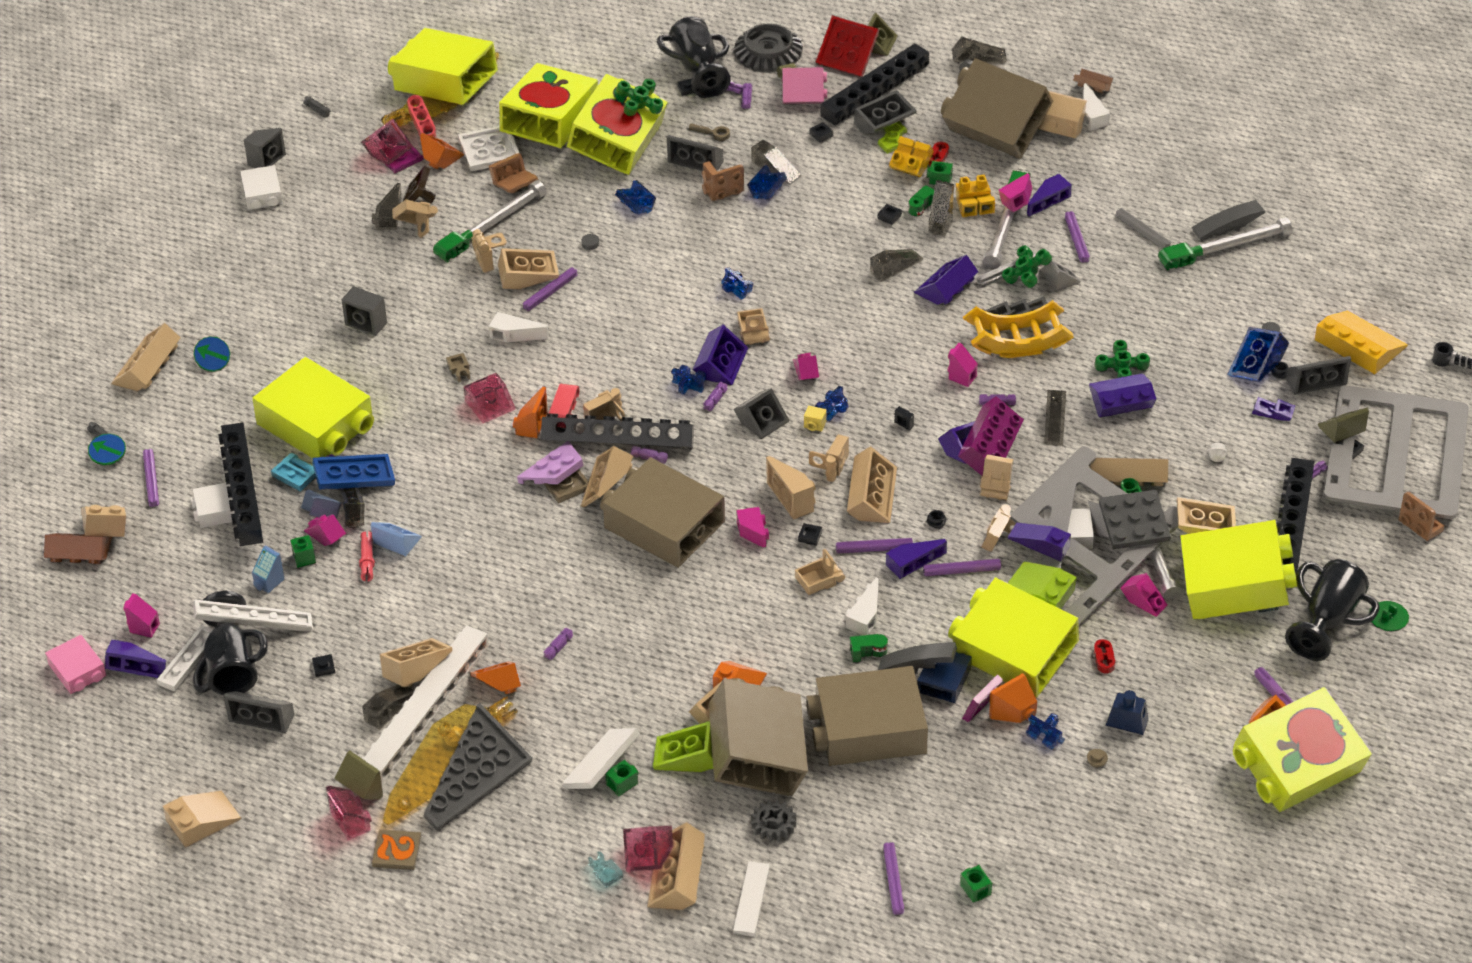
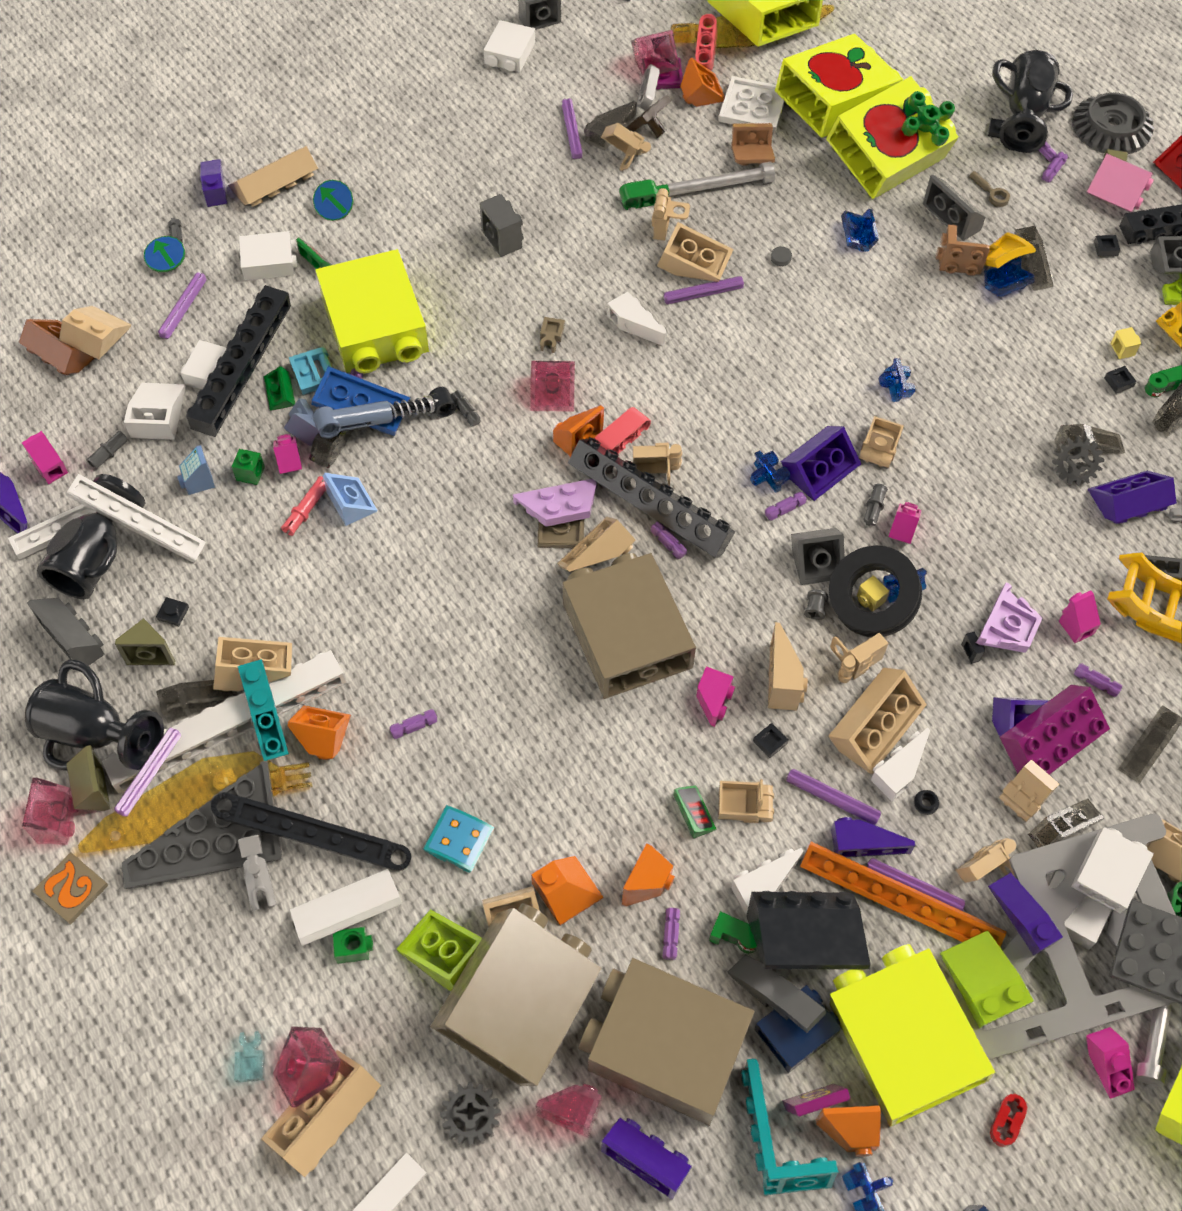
camera: 30 degrees right, 15 degrees up
(100, 384) = (213, 183): none -> dark purple slope
(179, 593) = (107, 450): none -> dark grey axle
(192, 413) = (267, 255): none -> white brick
(197, 551) = (155, 411): none -> white slope
(229, 399) = (311, 254): none -> green slope
(278, 496) = (279, 389): none -> green slope
(325, 743) = (84, 718): none -> black piece
(330, 686) = (144, 646): none -> olive slope
(351, 487) = (331, 422): none -> sand blue piece
(357, 223) = (572, 130): none -> medium lavender axle
(400, 169) = (648, 87): none -> light grey beam
(400, 750) = (147, 772): none -> axle
(433, 443) = (466, 408): none -> dark grey axle
(450, 677) = (263, 710): none -> teal slope
(524, 768) = (256, 871): none -> light grey piece
(542, 729) = (310, 831): none -> black plate
(644, 688) = (458, 838): none -> dark azure slope
(754, 162) = (1007, 248): none -> yellow plate
(776, 366) = (875, 504): none -> dark grey axle
(779, 439) = (816, 604): none -> dark grey bush
(788, 598) = (694, 811): none -> slope
(789, 642) = (648, 878): none -> orange slope
(810, 390) = (864, 561): none -> black tyre
(824, 666) = (671, 934): none -> medium lavender axle
(836, 780) = (572, 1108): none -> clear pink slope
(877, 189) = (1125, 343): none -> light yellow plate
(896, 282) = (1080, 452): none -> dark grey gear
(901, 784) = (646, 1157): none -> dark purple slope
(907, 507) = (899, 771): none -> white slope
(911, 612) = (808, 930): none -> black slope
(918, 392) = (1010, 623): none -> lavender wing
(948, 576) = (896, 895): none -> orange plate
(991, 745) = (791, 1175): none -> teal bracket
(1029, 484) = (1066, 823): none -> clear smoke slope
(1076, 487) = (1112, 869): none -> white brick

